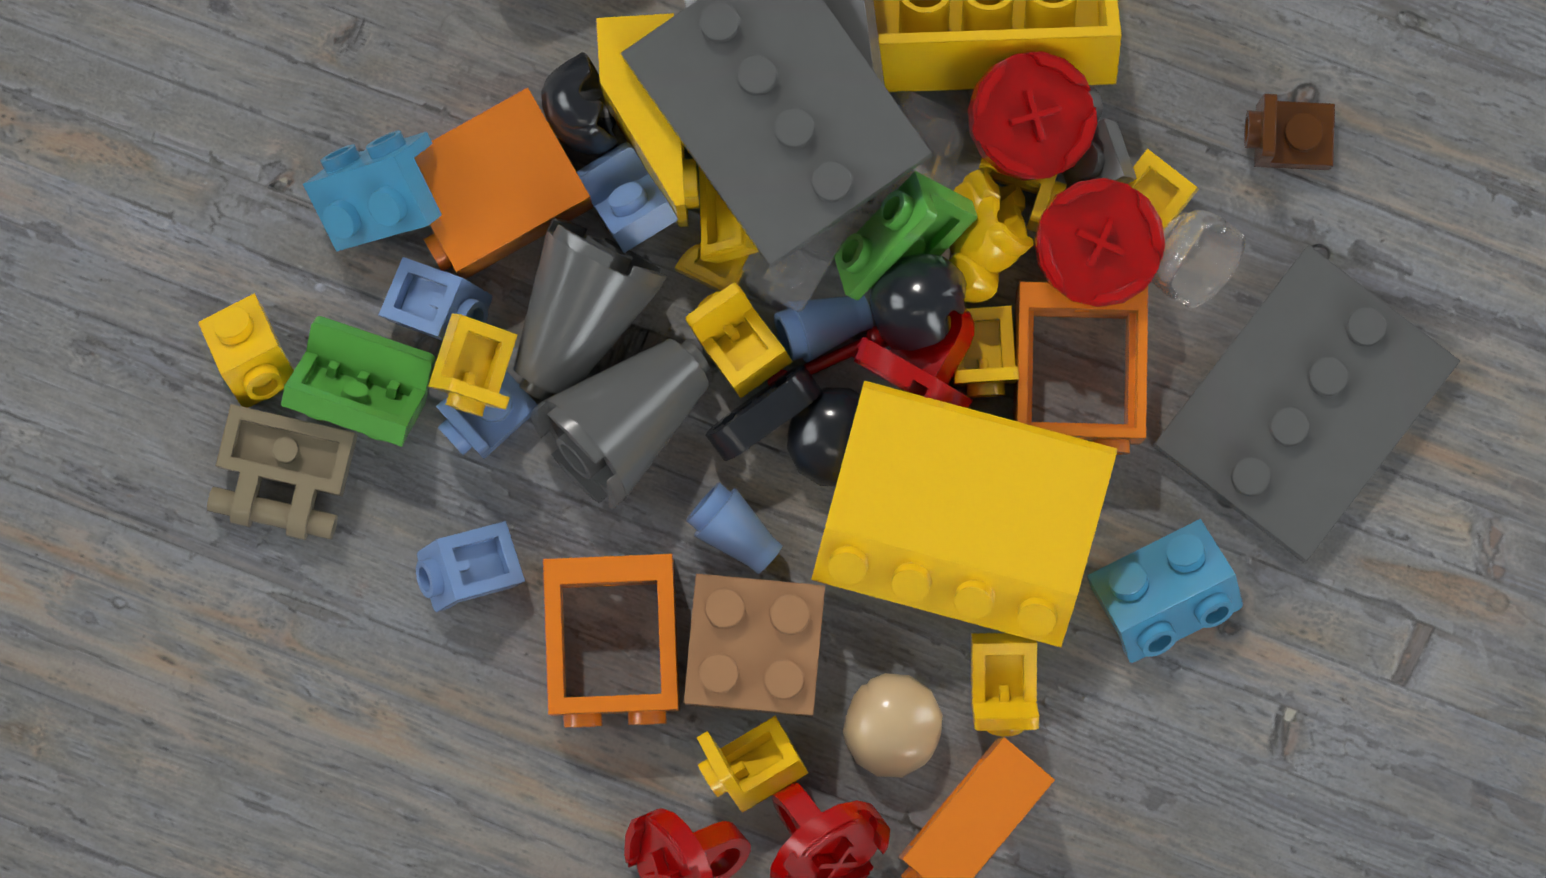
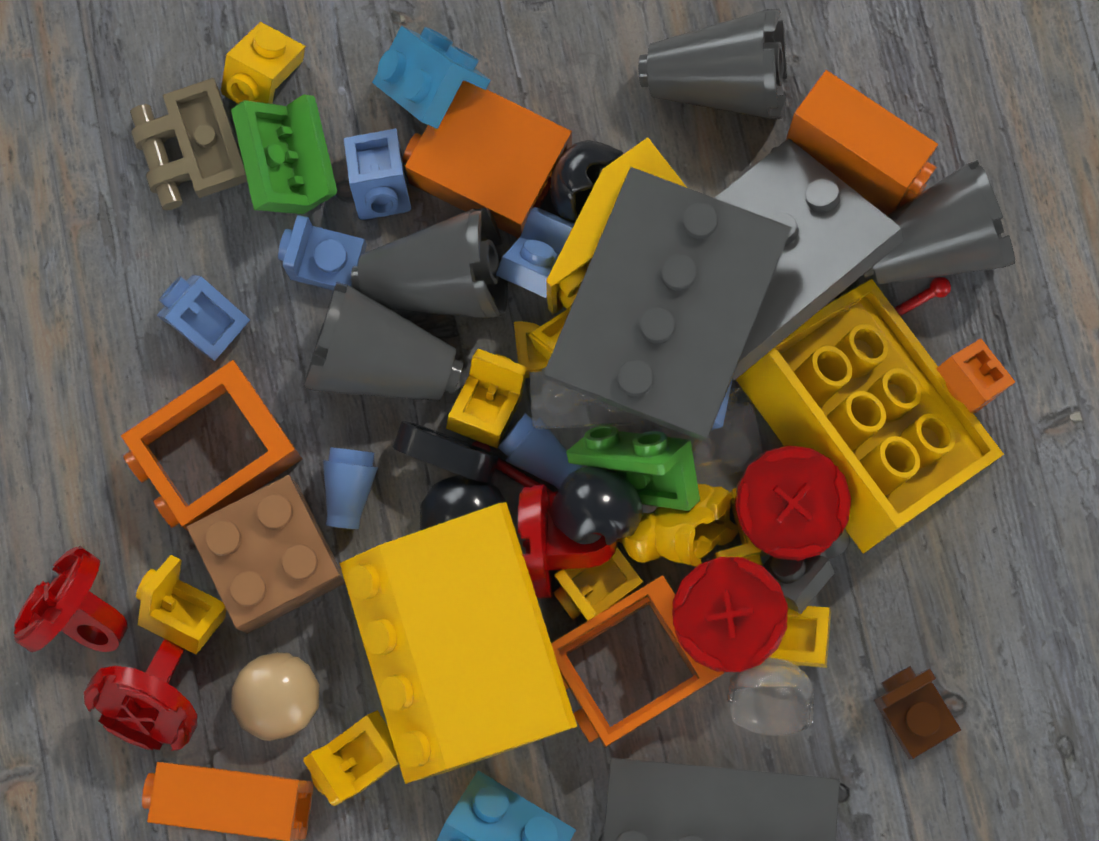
camera: 60 degrees right, 5 degrees down
(473, 364) = (342, 220): yellow bracket -> none

